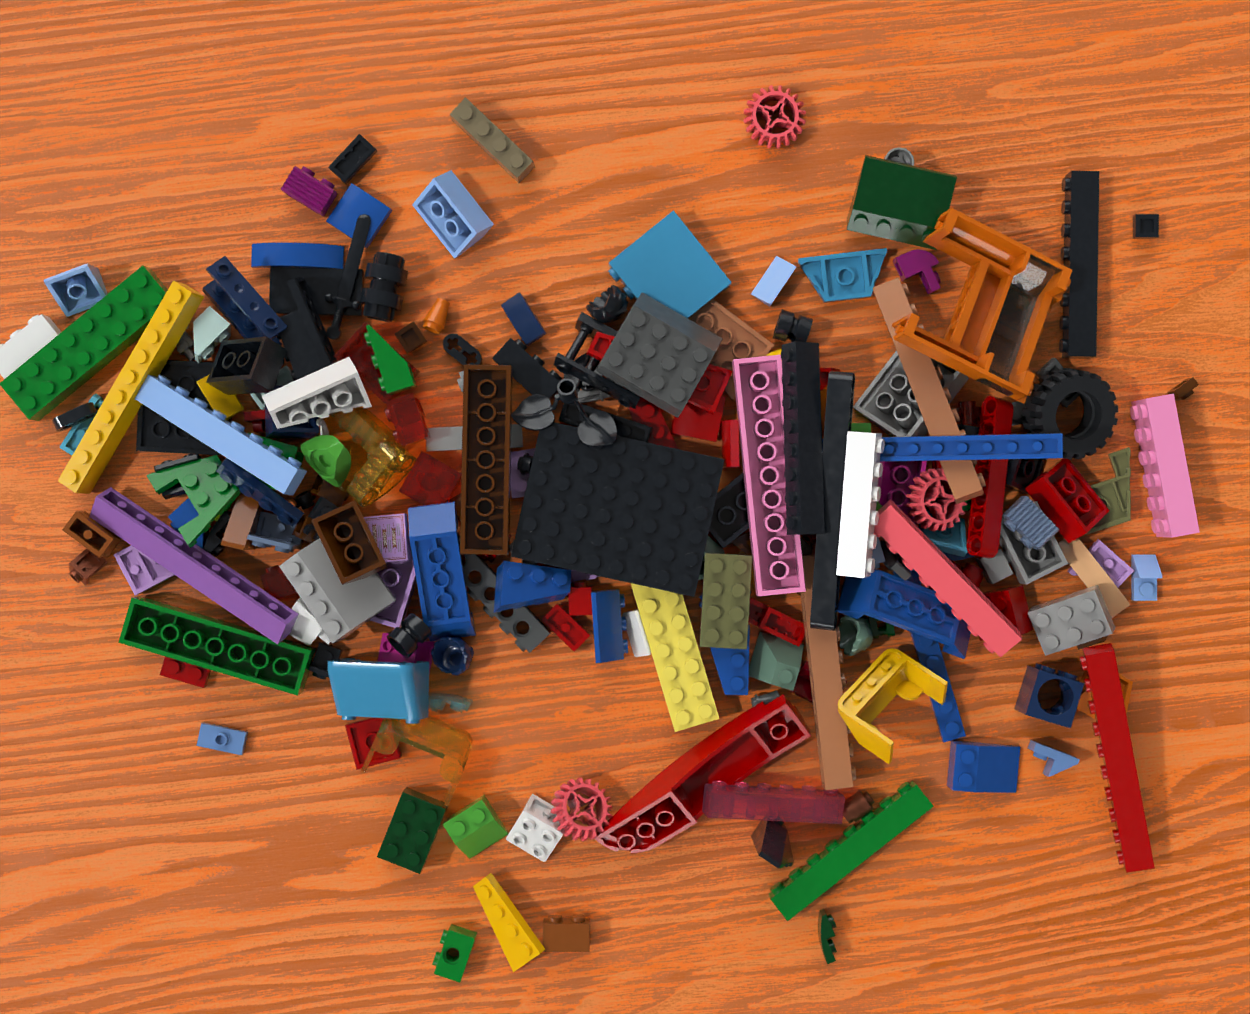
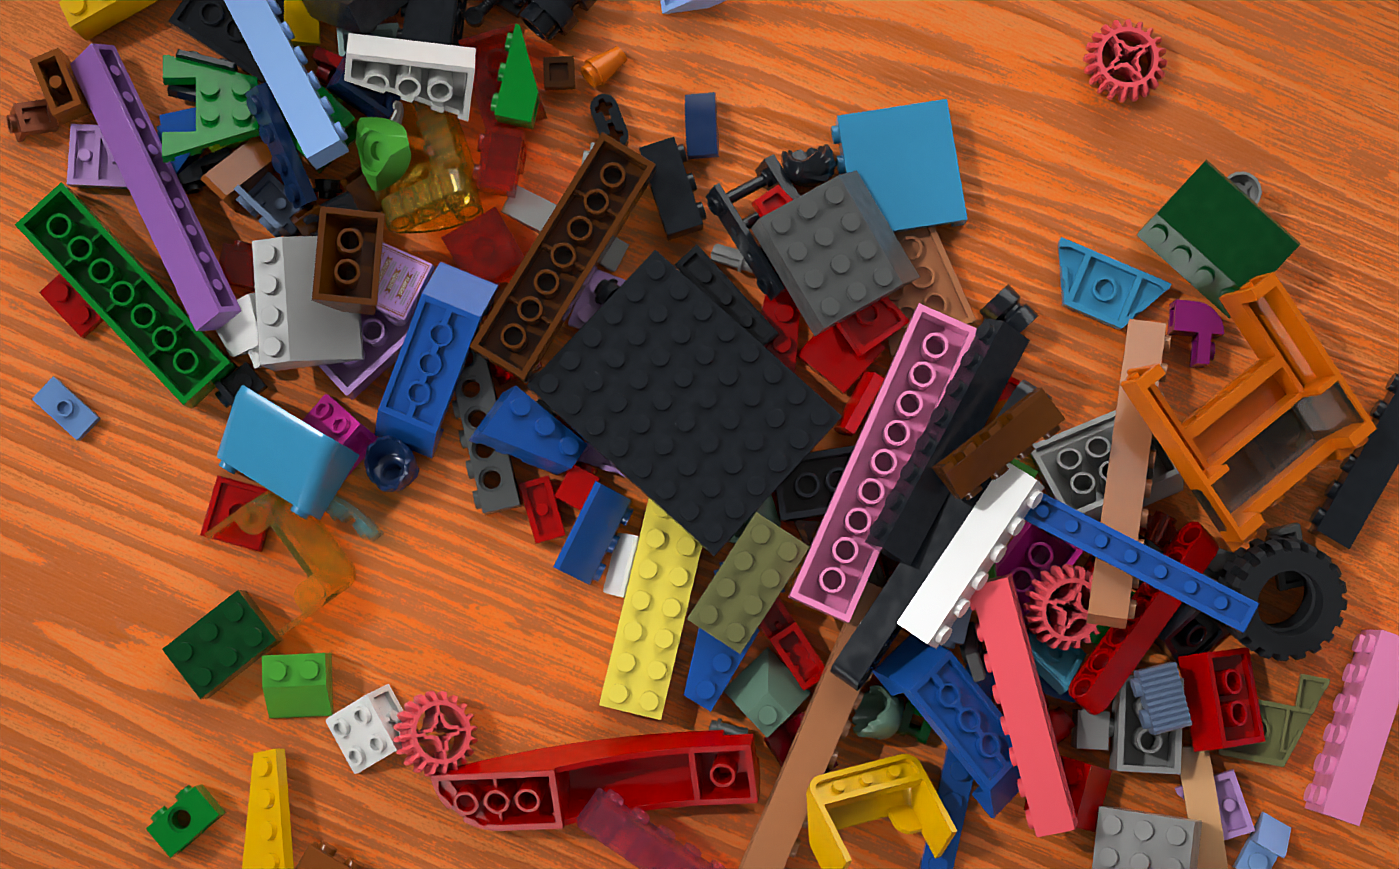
camera: 25 degrees right, 5 degrees down
(407, 637) = (359, 408): black wheel -> none
(536, 411) = (654, 239): black plant -> none
(773, 280) = (1017, 247): light blue slope -> none
(838, 424) = (998, 444): none -> reddish brown wedge

